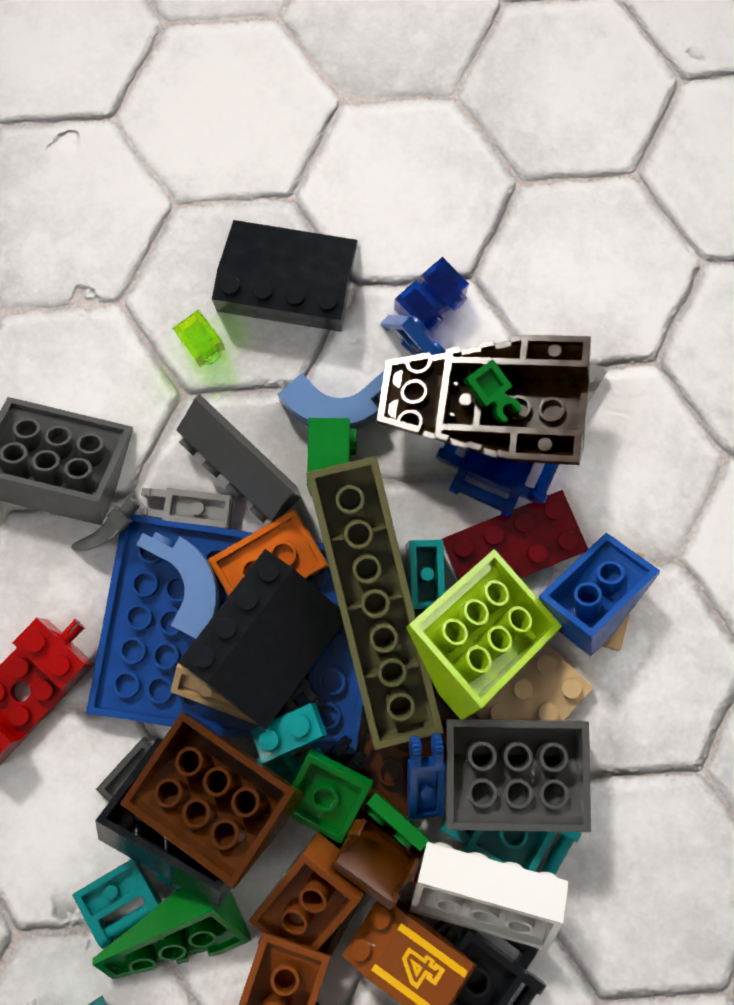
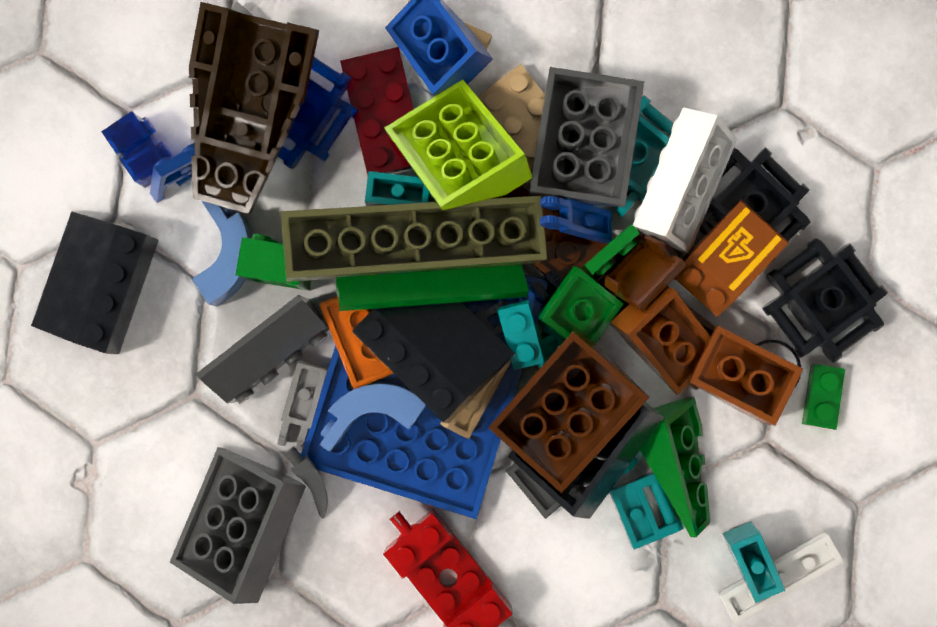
camera: 80 degrees left, 5 degrees up
(199, 339) = (143, 372): clear neon green brick -> none
(325, 627) = (430, 287): none -> green tile
(489, 386) = (234, 103): green plate -> none

